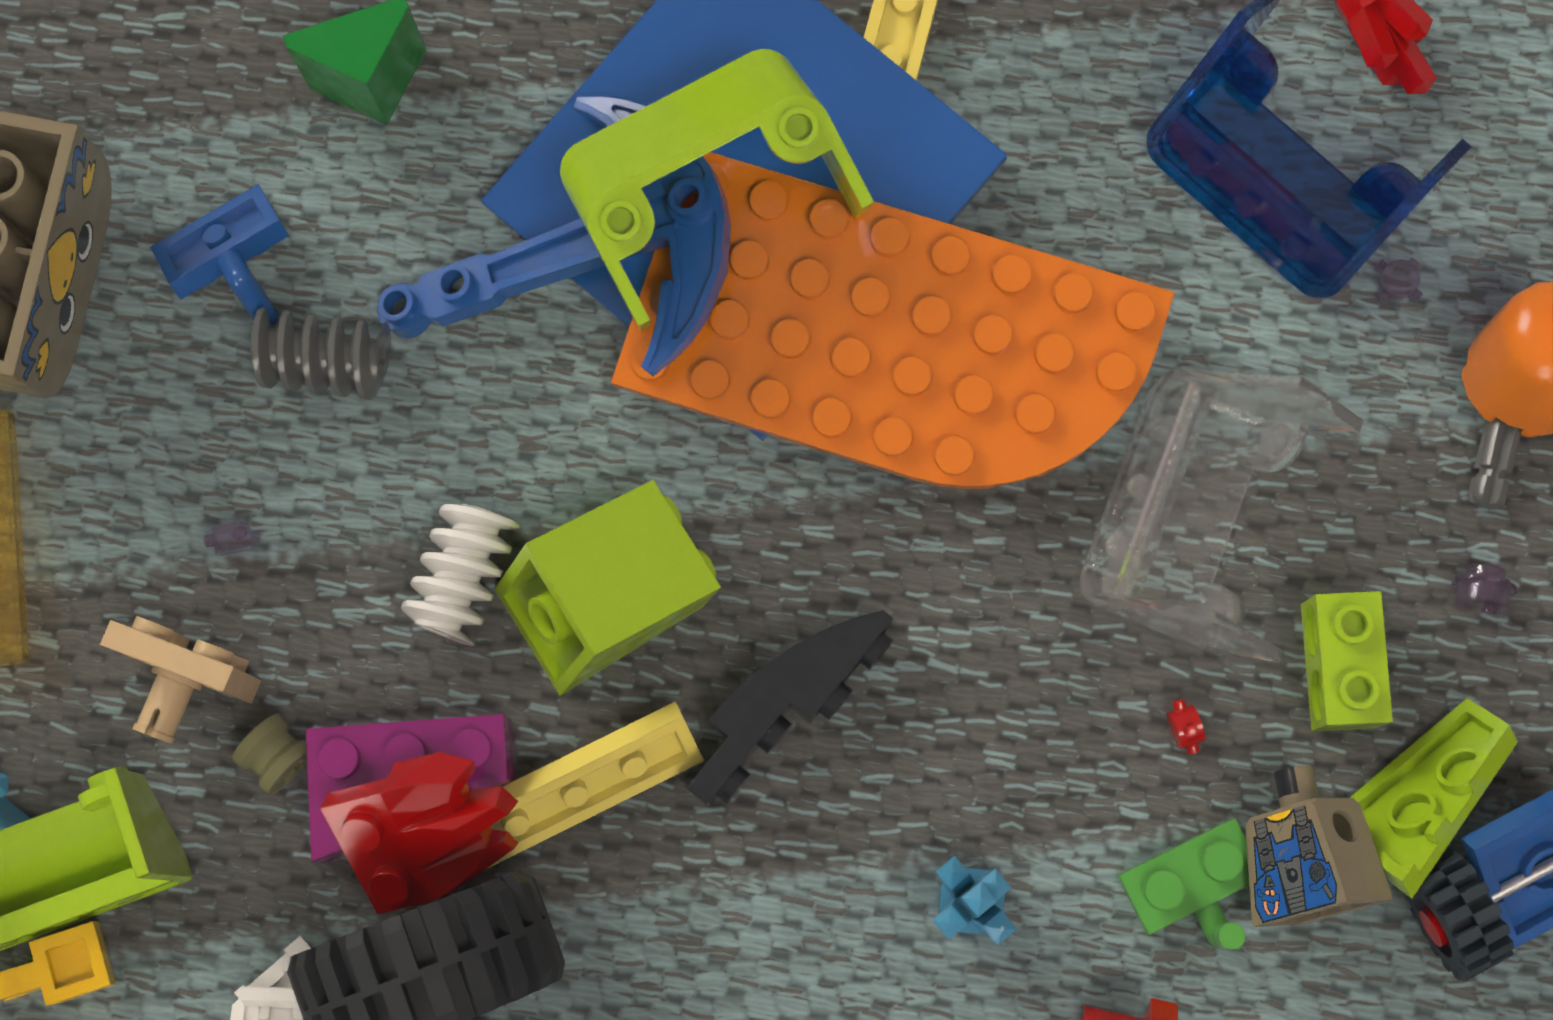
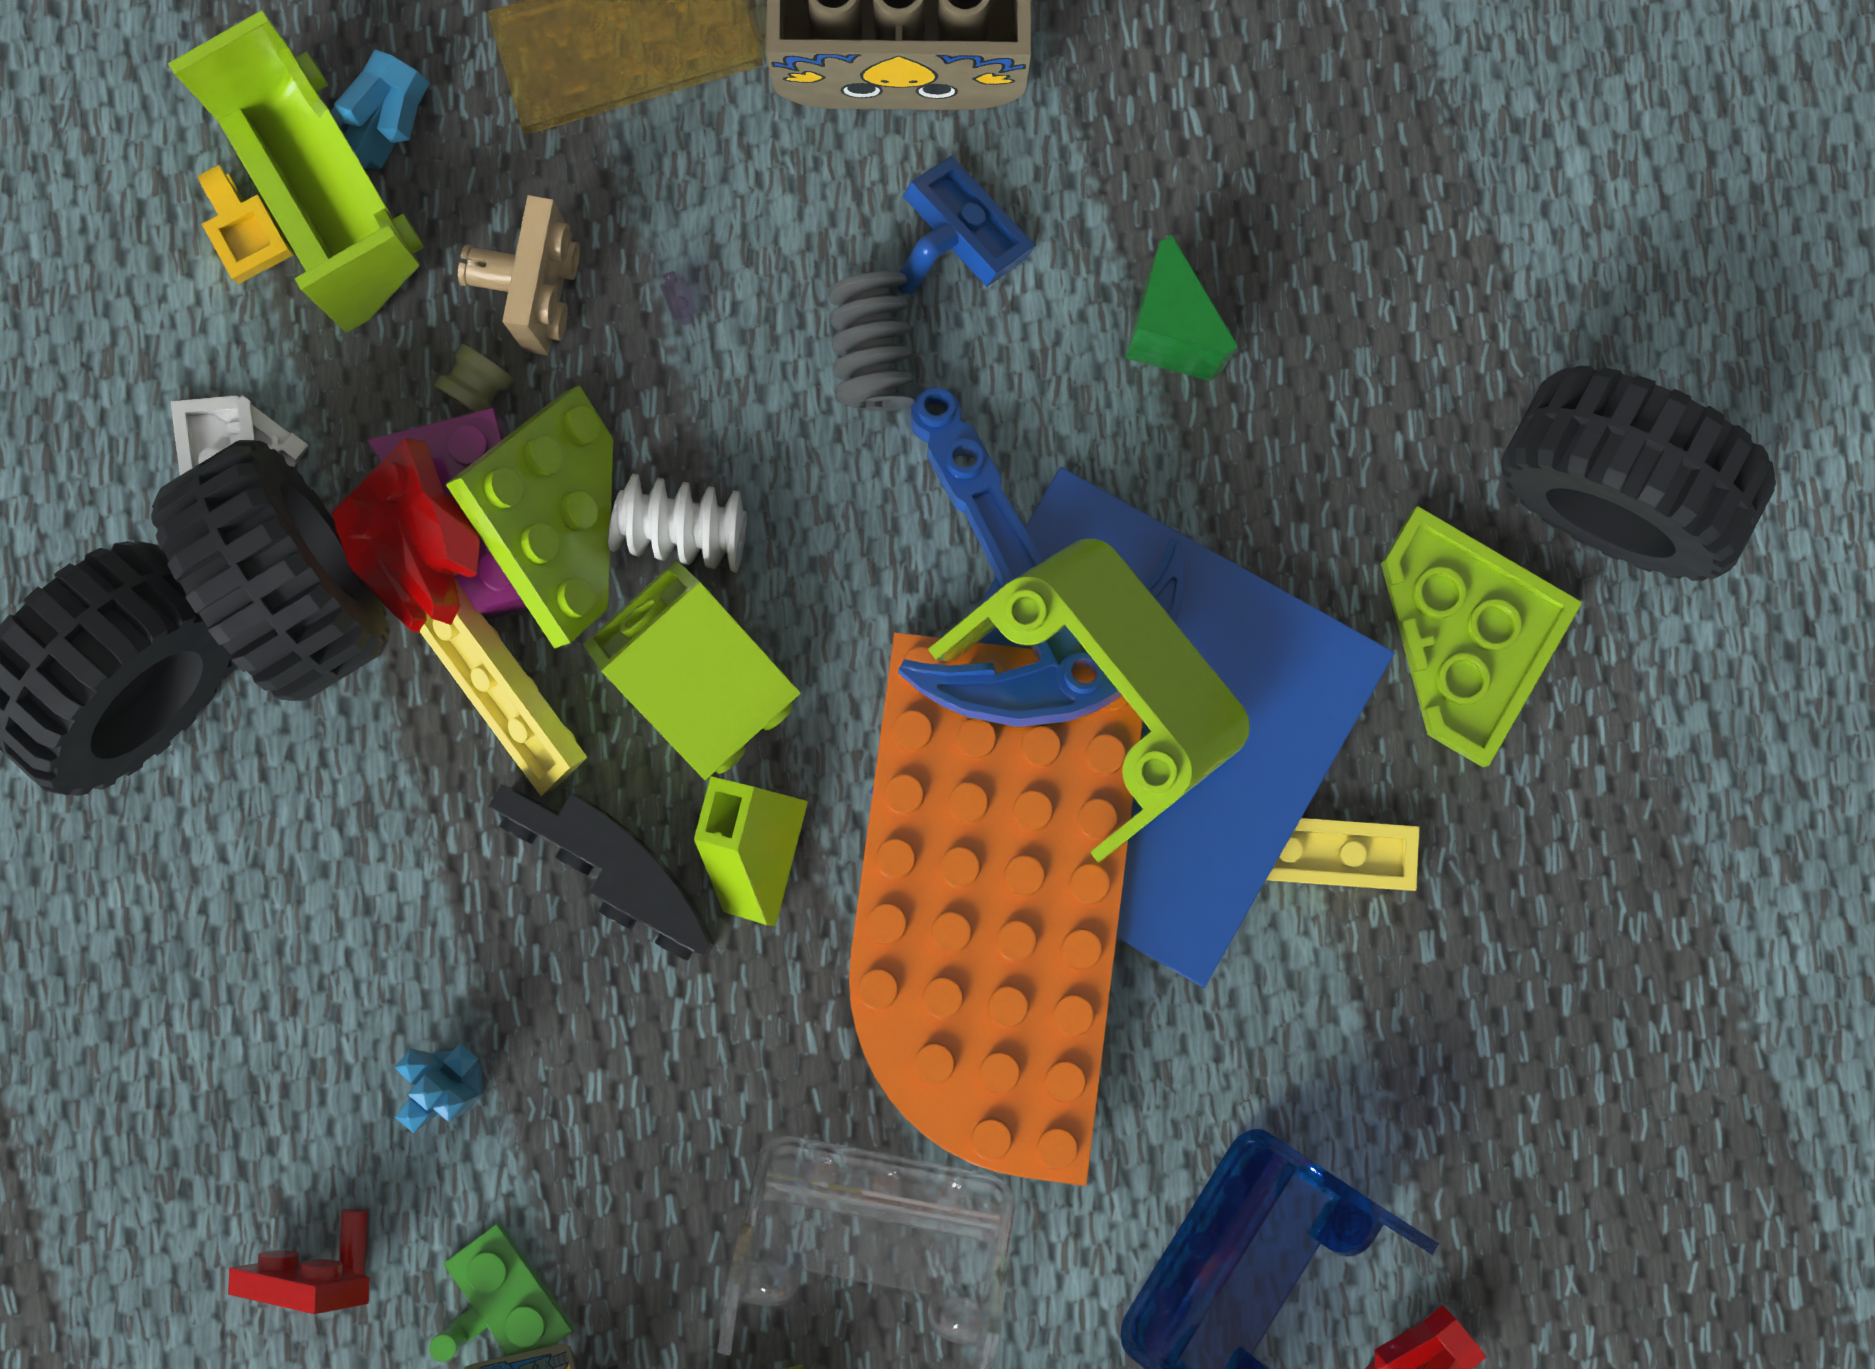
camera: 70 degrees right, 5 degrees up
(423, 694) = (547, 512): none -> lime plate
(794, 559) = (748, 846): none -> lime slope
(1186, 726) = (655, 1267): red piece -> none

